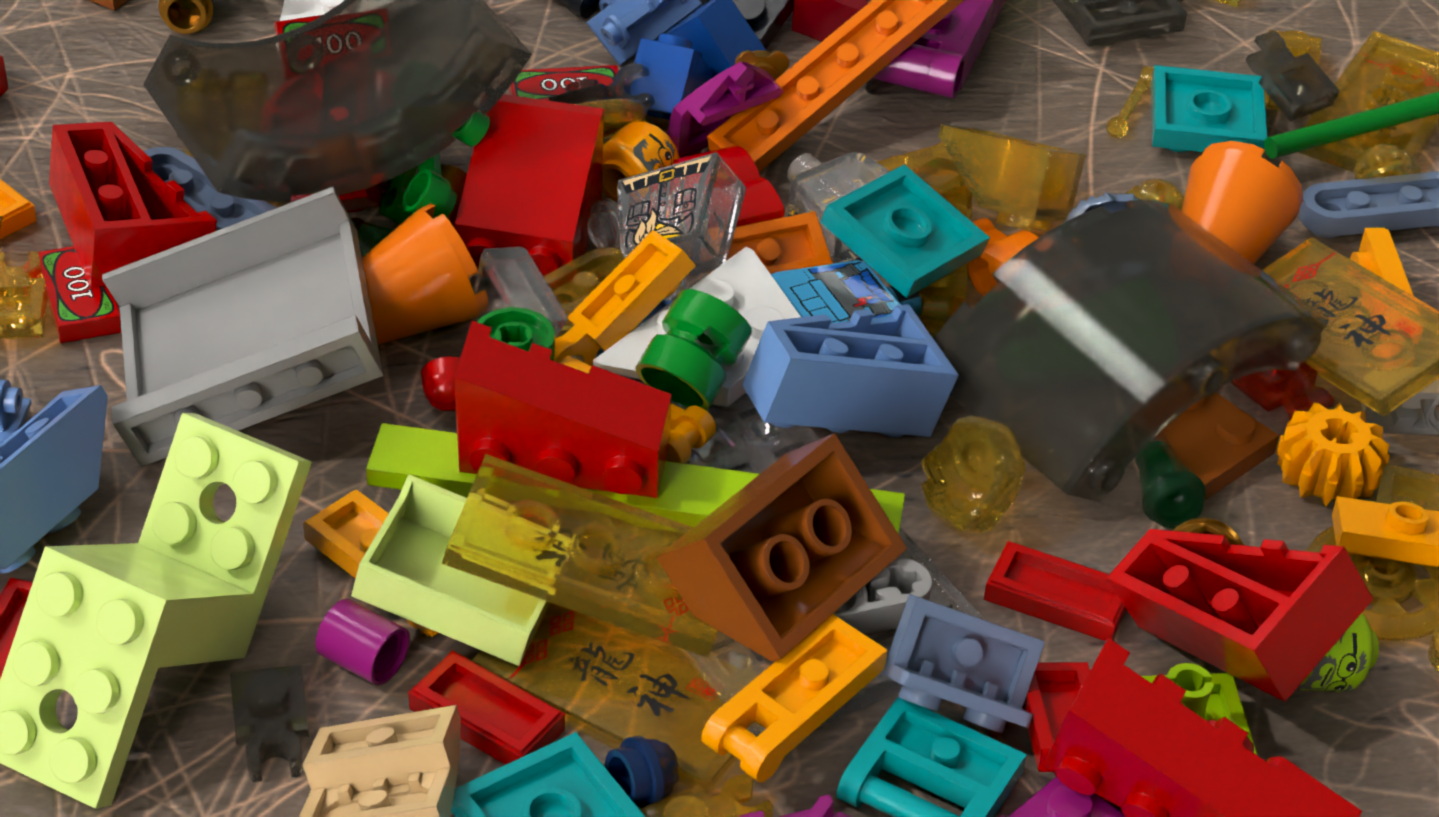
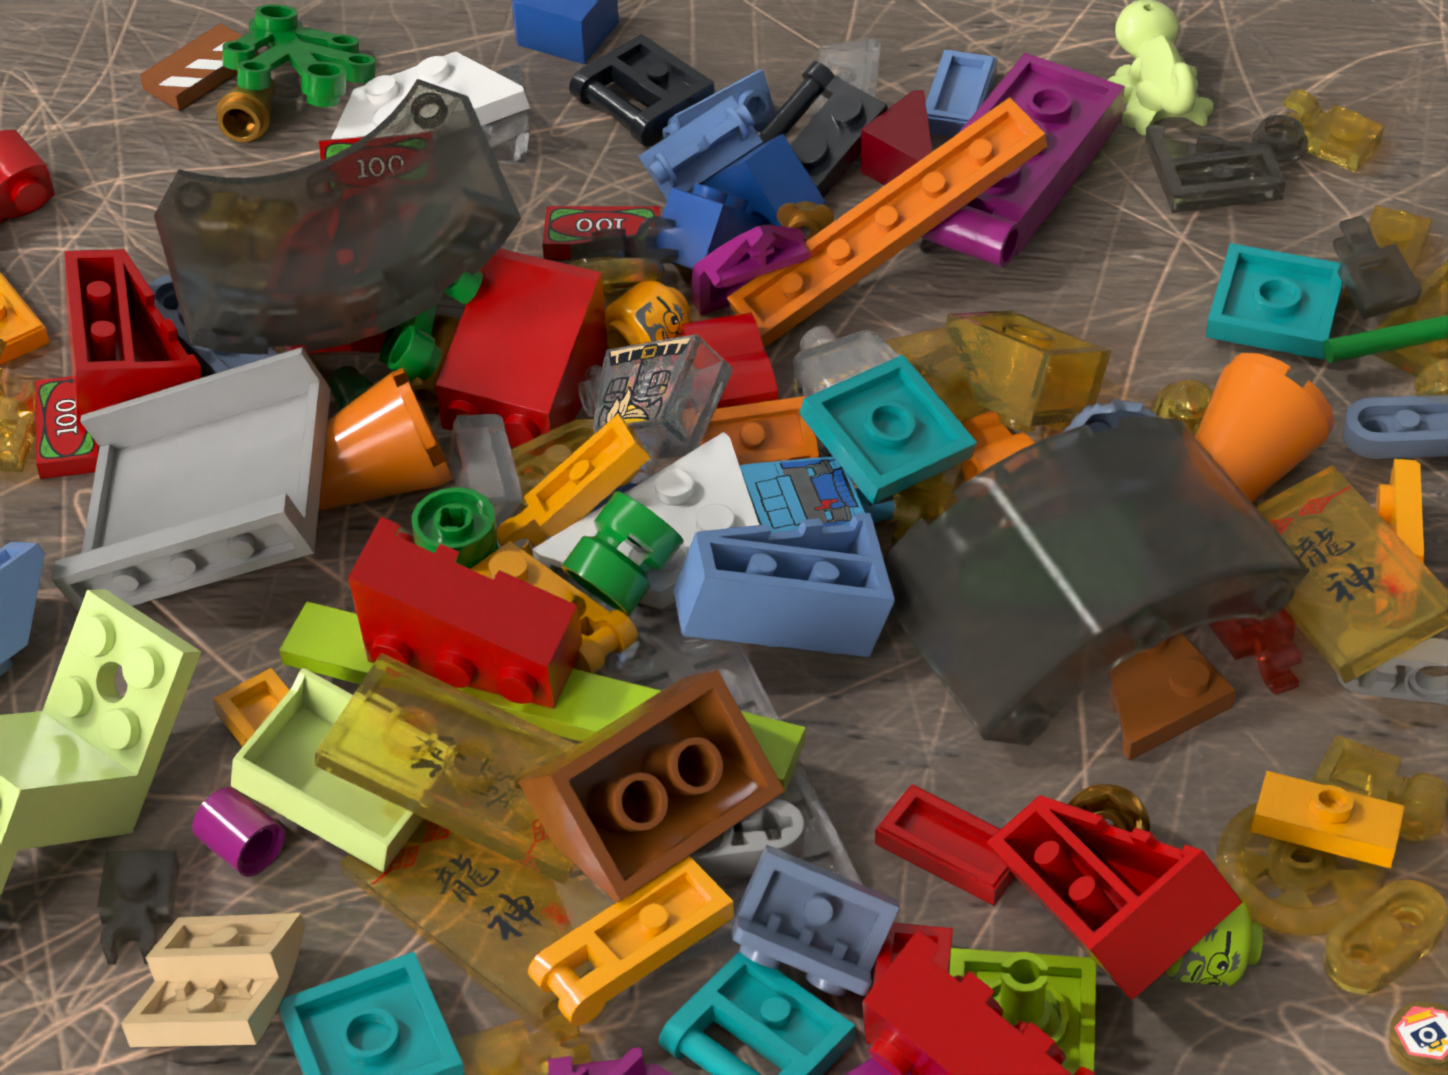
camera: 15 degrees right, 5 degrees up
(492, 711) = (343, 914): red tile -> none
(644, 769) = (471, 999): dark blue plate -> none
(973, 474) = (890, 709): clear yellow hair -> none
(1118, 125) = (1176, 309): clear yellow hinge -> none
(1168, 486) = (1097, 741): clear green cone -> none
(1332, 453) = (1284, 718): light orange gear -> none

